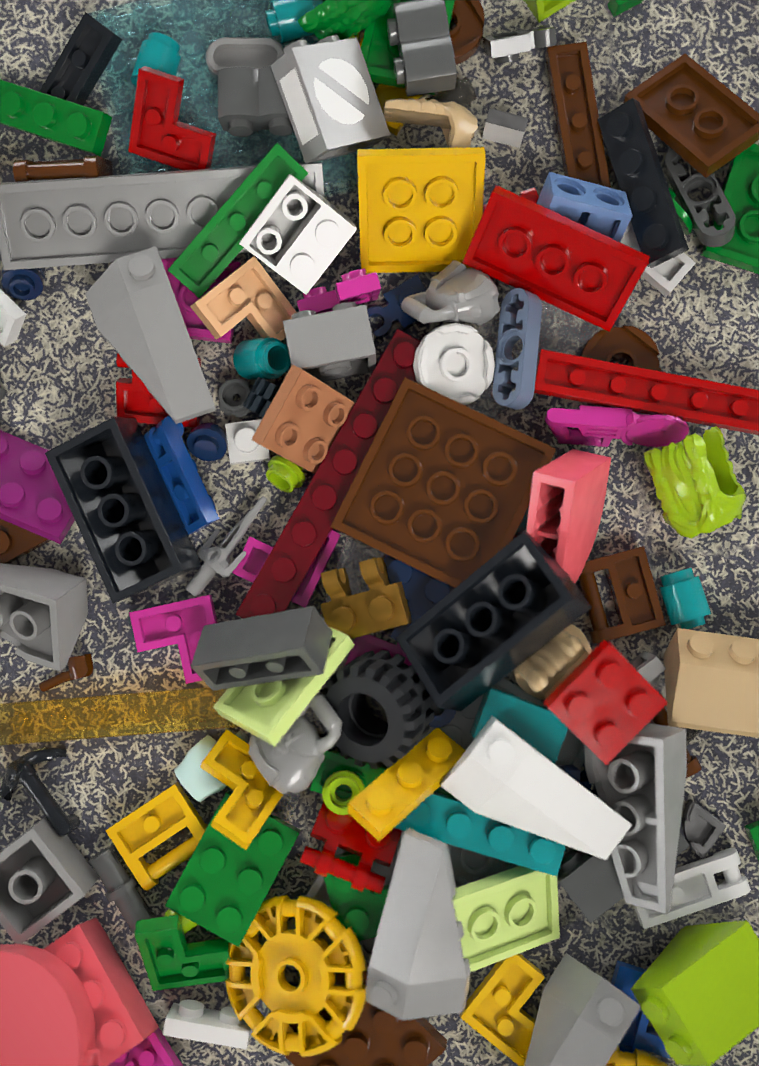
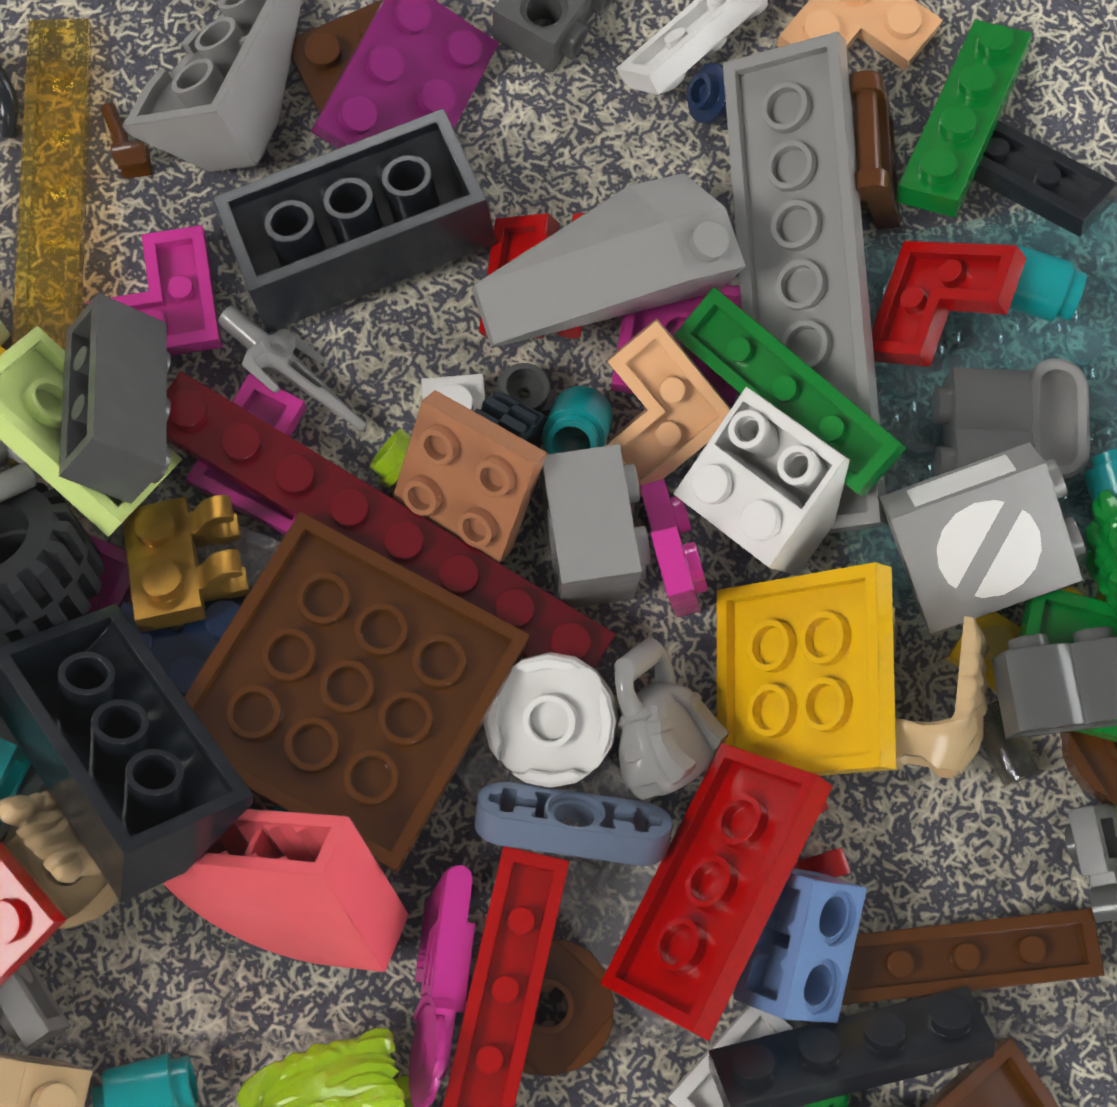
camera: 85 degrees right, 10 degrees down
(181, 475) = (403, 305): blue plate -> none
(207, 442) = (455, 346): dark blue plate -> none
(393, 312) = (685, 660): dark blue plate -> none
(504, 128) = (953, 829): tile -> none
(631, 591) = (165, 1005): reddish brown plate -> none

